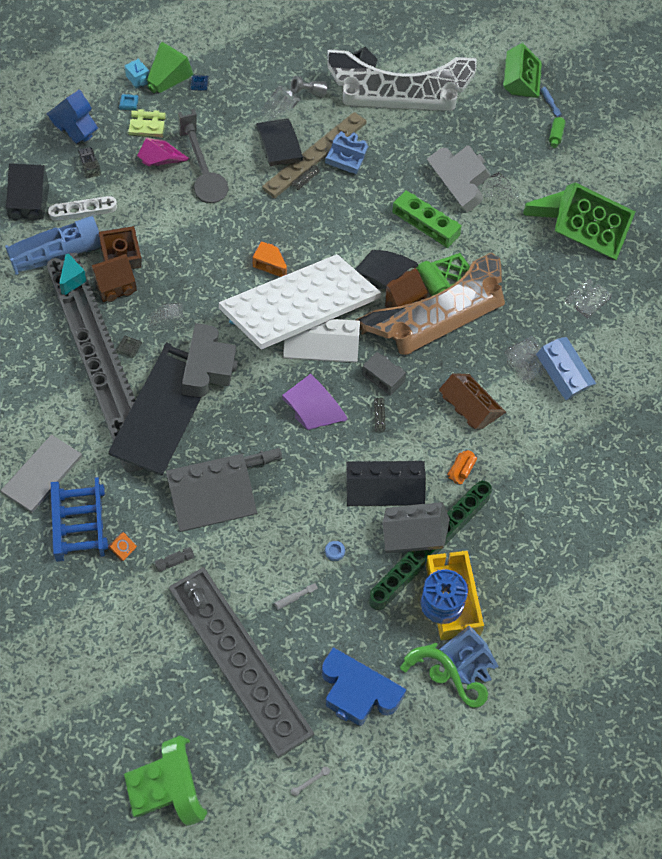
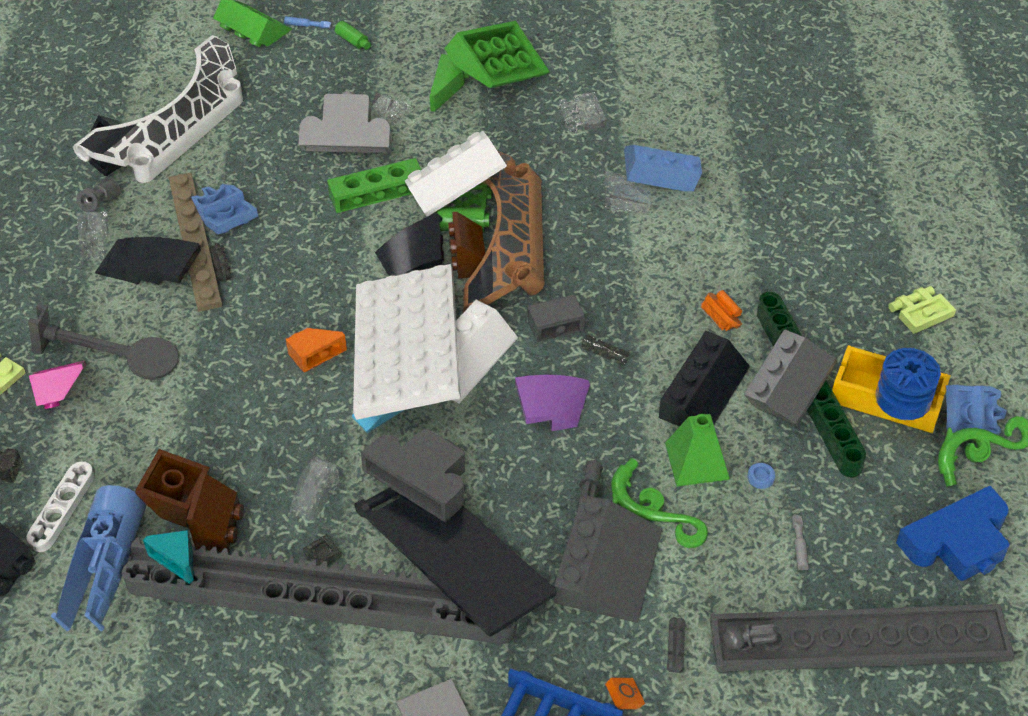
camera: 55 degrees left, 10 degrees down
(265, 502) = (653, 511): none -> bright green plant
(324, 506) = (696, 452): none -> bright green slope
(457, 252) = (455, 173): none -> white slope
(471, 400) = (646, 262): reddish brown slope -> none
(550, 594) = (924, 314): none -> yellowish green plate

